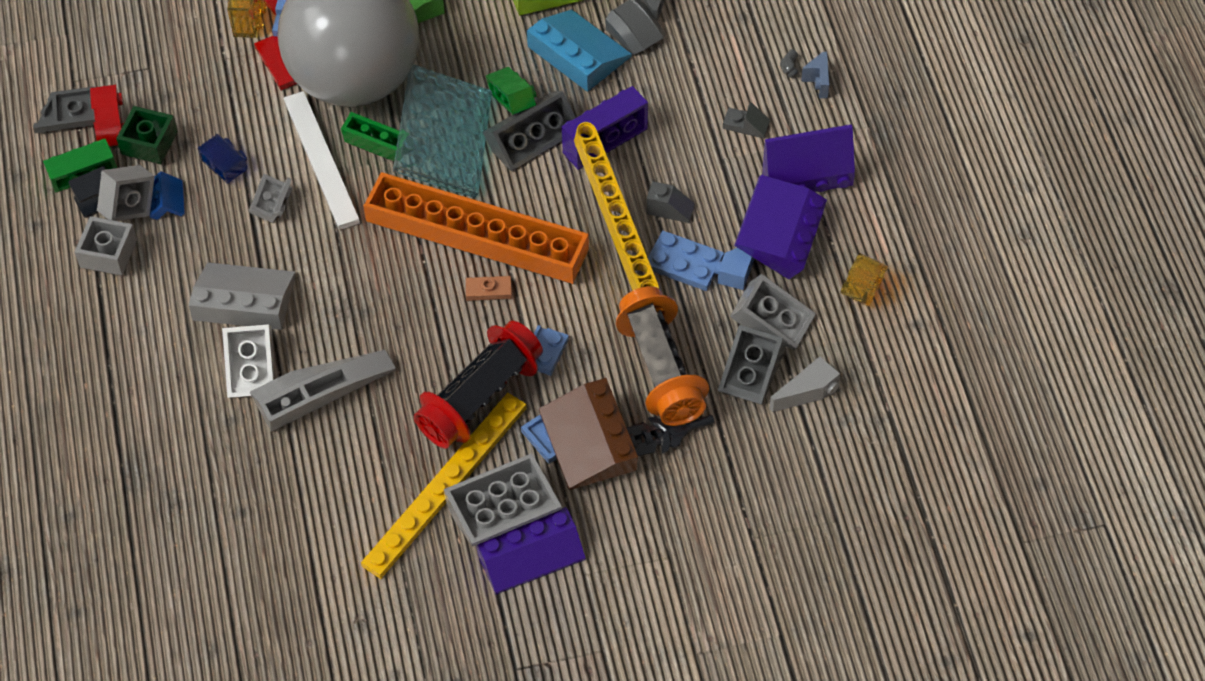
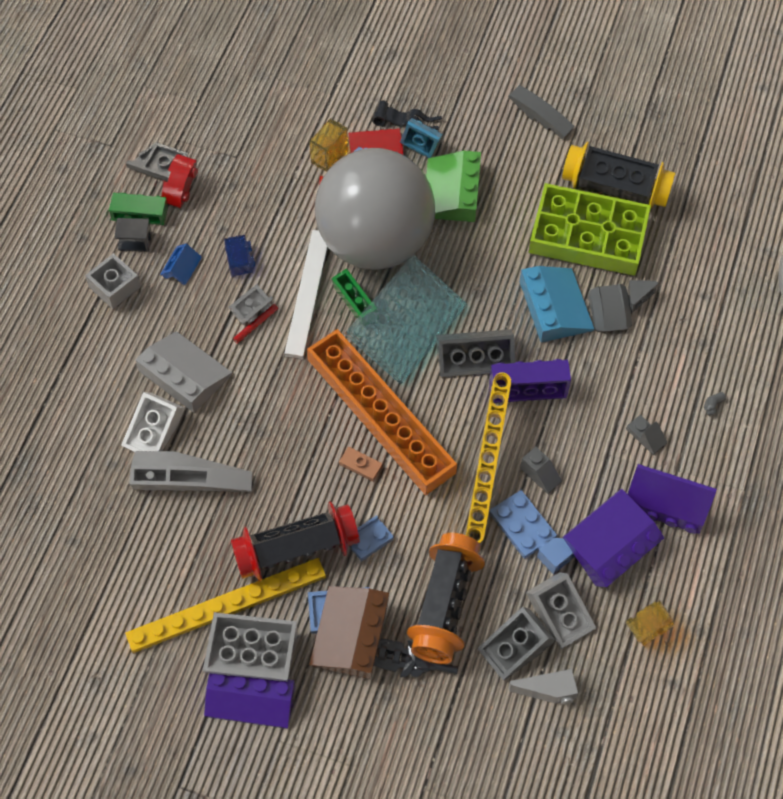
camera: 30 degrees right, 5 degrees up
(125, 193) = (148, 248): light grey brick -> none
(147, 135) = (197, 209): dark green brick -> none
(282, 225) = (254, 324): none -> red bar
(511, 90) = (478, 313): green brick -> none
(817, 72) = (730, 422): sand blue slope -> none

